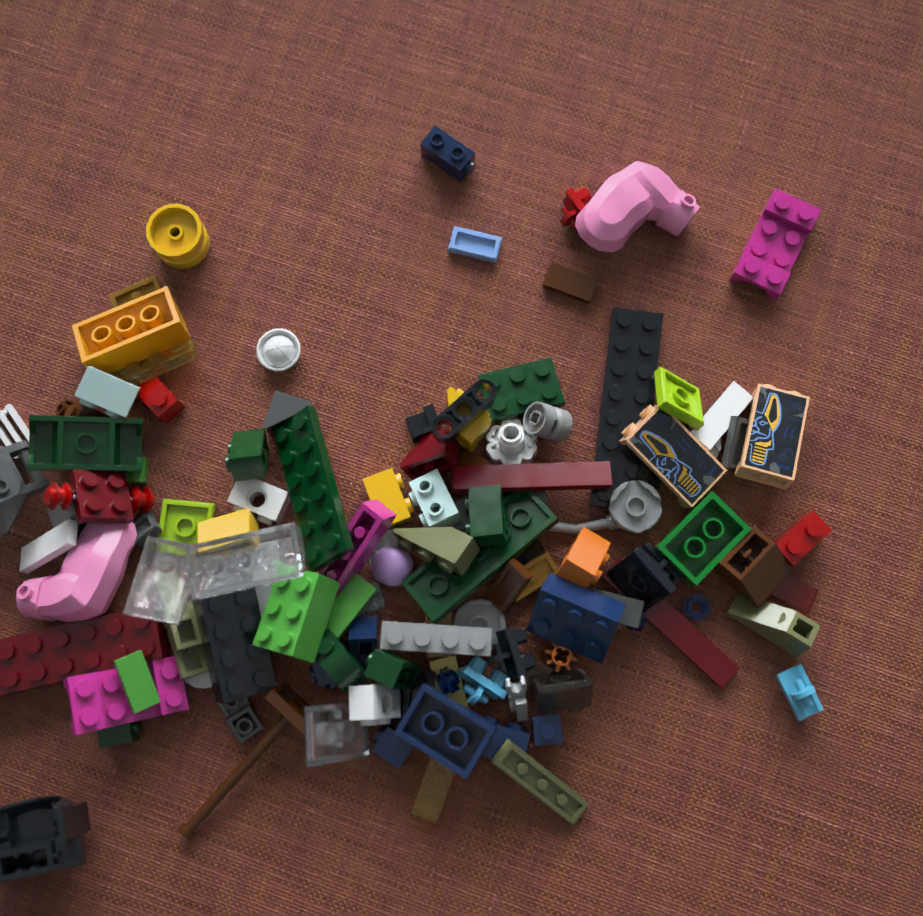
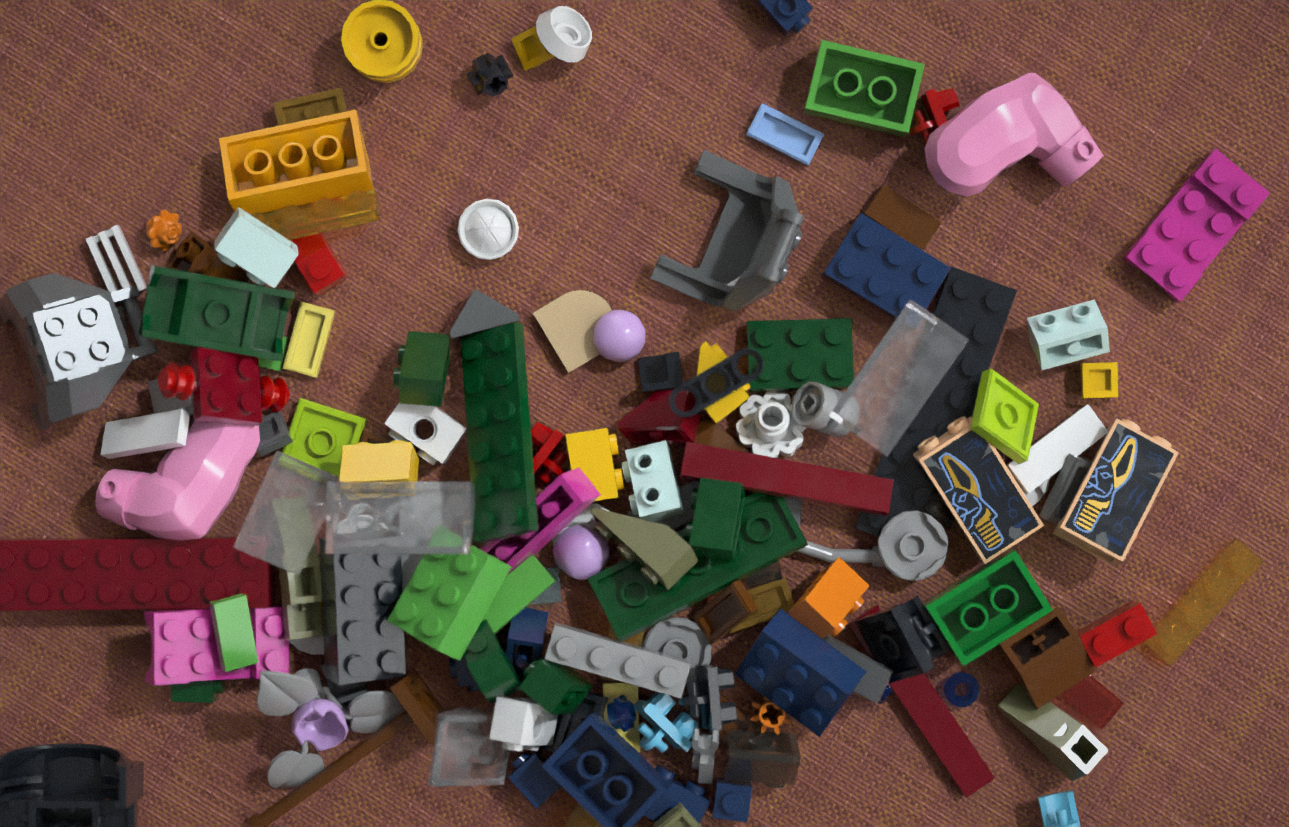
camera: 15 degrees right, 10 degrees up
(43, 399) = (164, 230): none -> orange plant
(163, 456) = (309, 339): none -> light yellow tile
(180, 719) = (283, 693): none -> light grey plant
(216, 739) = (320, 723): none -> lavender hair
(259, 244) = (489, 74): none -> black gear
(287, 220) = (530, 49): none -> yellow plate
(306, 205) = (564, 33): none -> white hat
(351, 490) = (547, 441): none -> red hips
(356, 405) = (570, 325): none -> tan tile
(387, 404) = (619, 335): none -> lavender hair
(465, 318) = (748, 242): none -> dark grey piece
(522, 198) = (864, 88): none -> bright green brick
(567, 318) = (884, 268): none -> dark blue brick
(595, 385) = (898, 378): none -> clear slope
(708, 333) = (1068, 334): none -> light aqua brick
(737, 362) = (1099, 380): none -> yellow plate
(854, 503) = (1203, 601): none -> clear yellow plate

